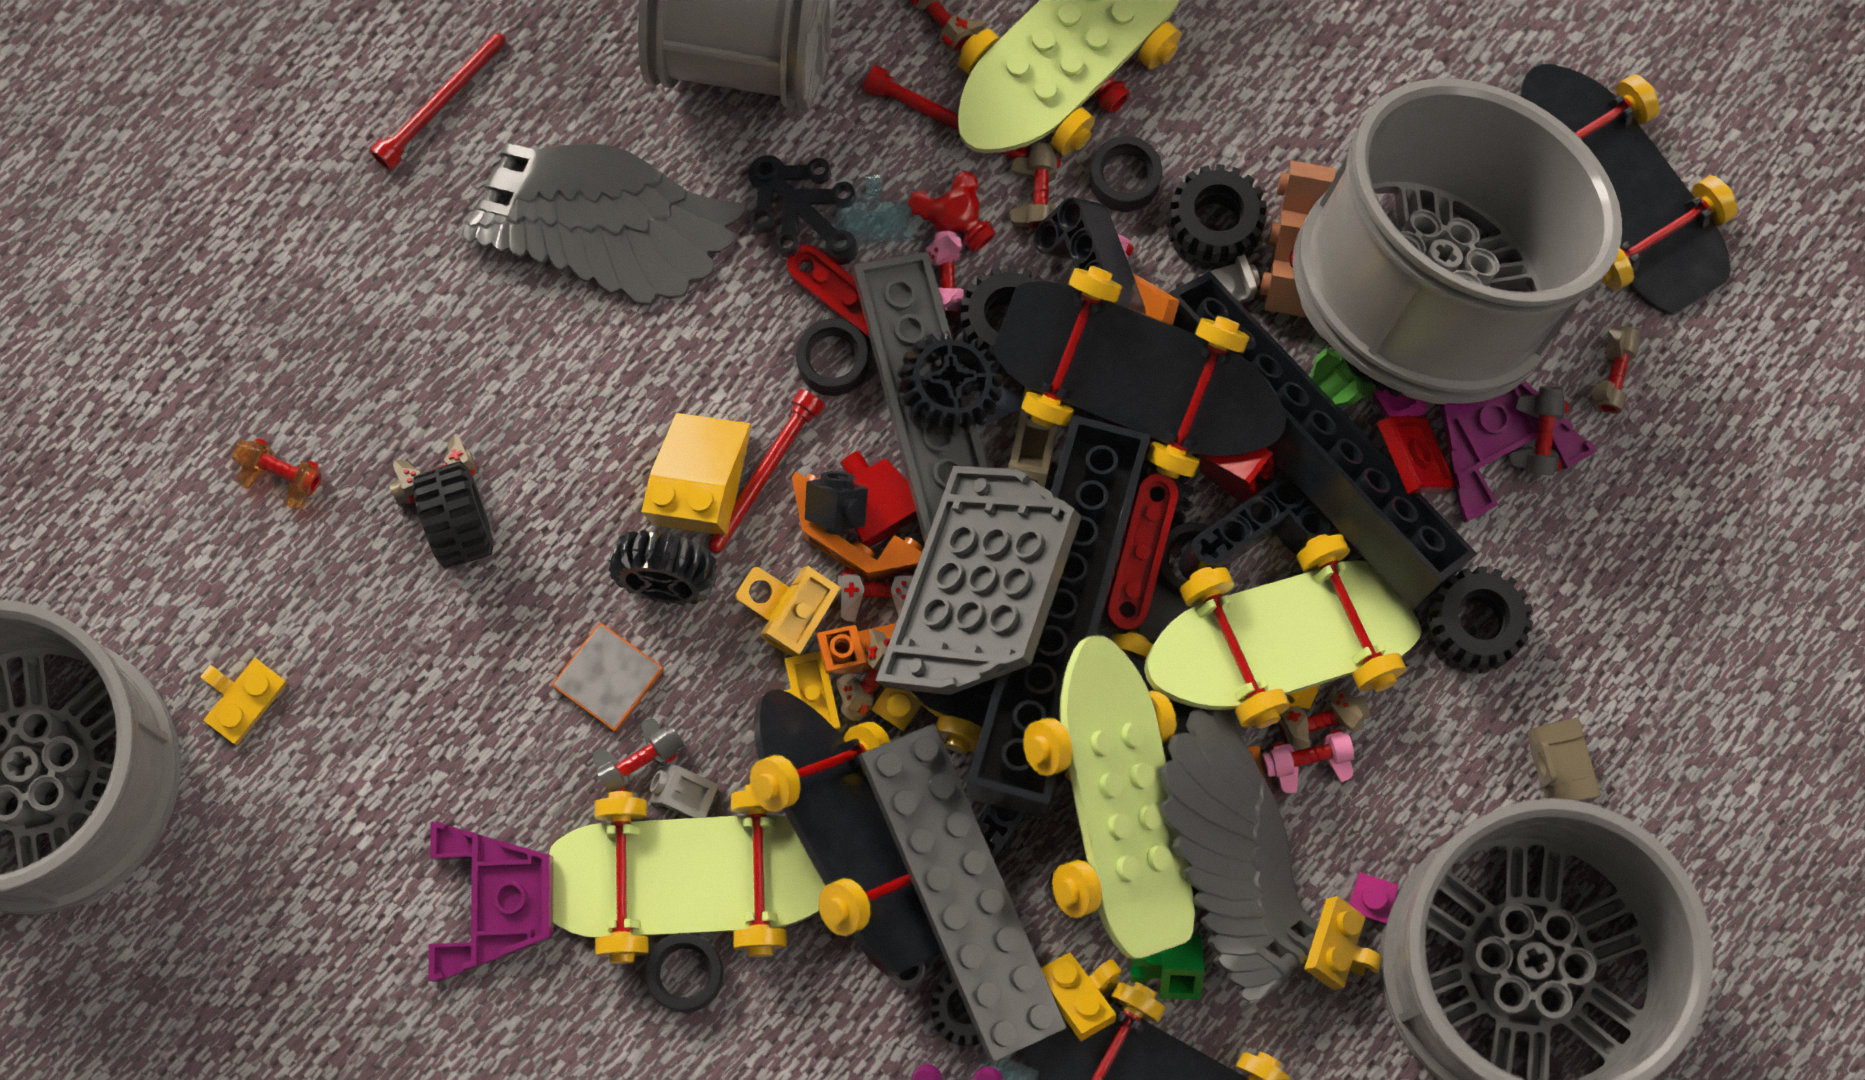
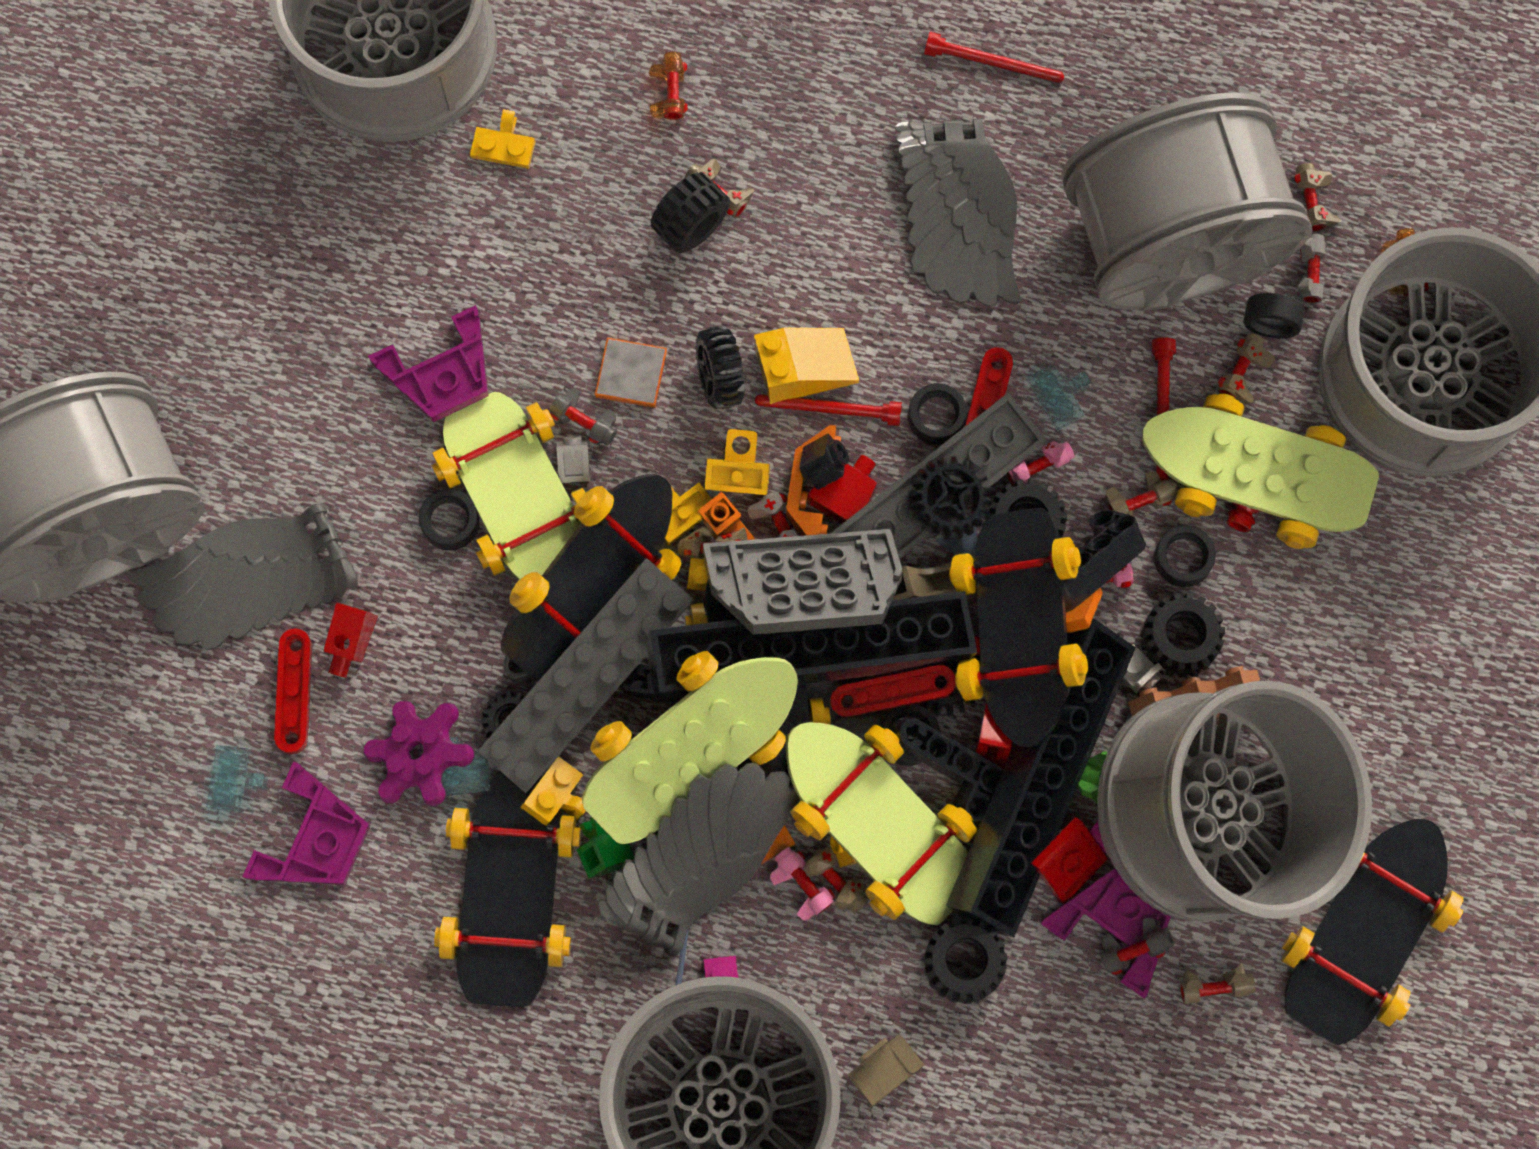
camera: 65 degrees right, 0 degrees up
(800, 203) = (1039, 336): black plant -> none
(956, 211) = (1091, 448): red animal -> none
(1336, 947) = (672, 958): yellow plate -> none

